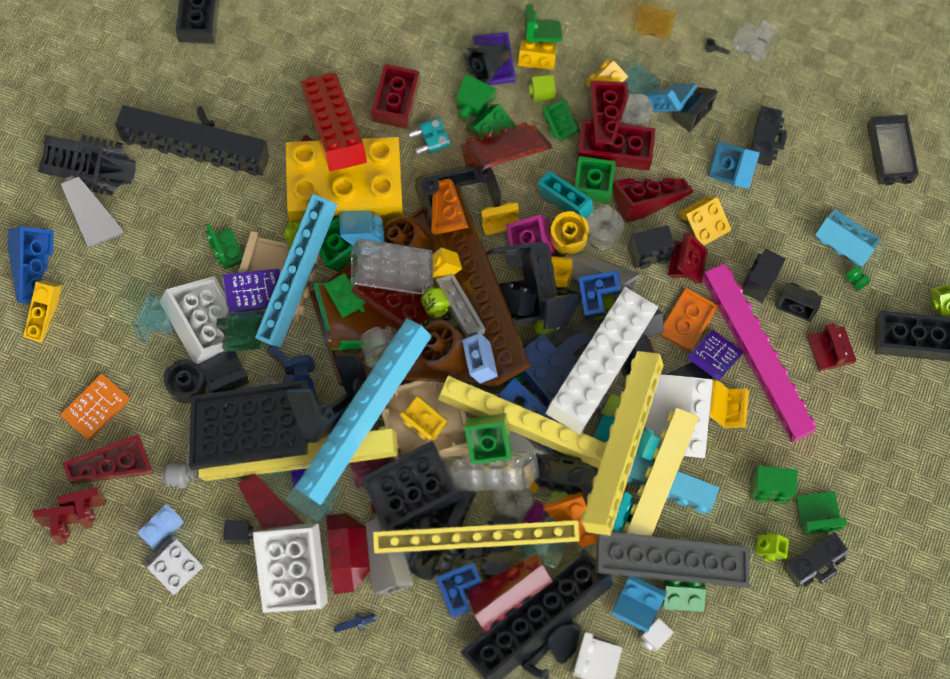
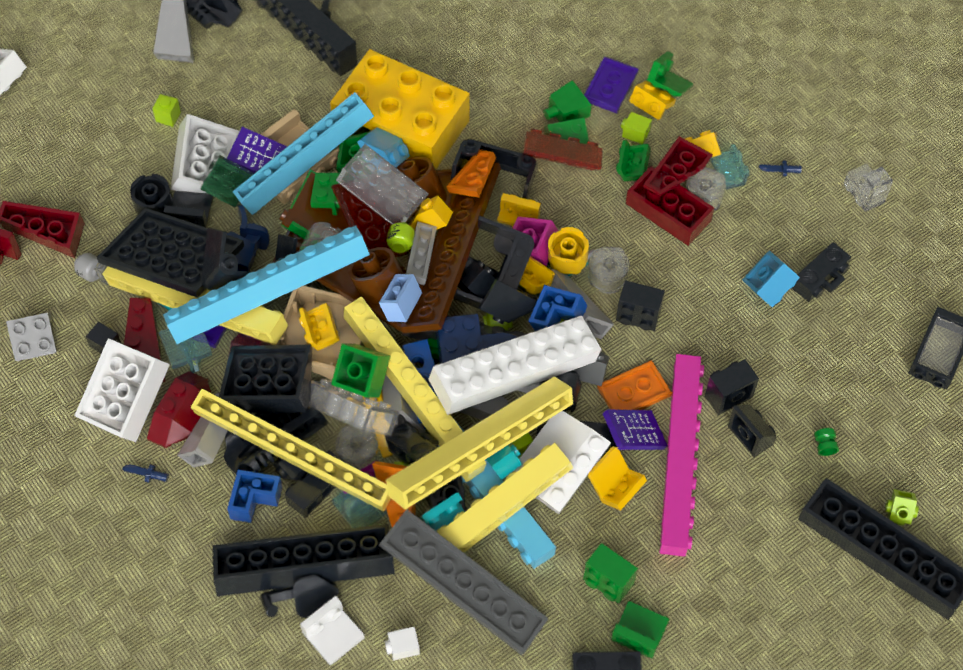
camera: 35 degrees right, 10 degrees down
(28, 257) = (101, 41): blue wedge -> none
(42, 308) = (84, 81): yellow slope -> none
(95, 407) = (67, 179): orange tile -> none
(137, 293) = (166, 110): none -> lime brick
(151, 318) = (159, 132): clear light blue bracket -> none
(160, 527) = (44, 299): light blue brick -> none
(224, 247) = (263, 111): green bracket -> none
(333, 122) = (419, 51): red brick -> none
(395, 96) = (498, 68): dark red brick -> none
(433, 135) = (509, 118): teal piece -> none
(486, 60) = (600, 77): black cone -> none
(508, 590) = (293, 518): dark red wedge -> none
(564, 195) = (589, 221): teal brick -> none
(595, 178) = (627, 224): green brick -> none
(639, 603) = (406, 605): dark azure bracket -> none
(642, 198) = (663, 264): dark red wedge -> none
(655, 22) = (781, 125): clear yellow brick -> none
(672, 98) = (741, 191): dark azure bracket -> none
(679, 59) = (784, 168): none -> dark blue piece
(684, 596) = (455, 625): bracket -> none
(688, 259) = (670, 336): dark red bracket -> none
(695, 108) = (767, 214): black slope -> none
(706, 219) = (711, 315): yellow bracket -> none
(709, 49) = (823, 175): black hand -> none
(772, 546) = (569, 630): lime brick -> none
(831, 348) = (757, 490): dark red bracket -> none
(848, 238) = (841, 401): medium azure slope -> none

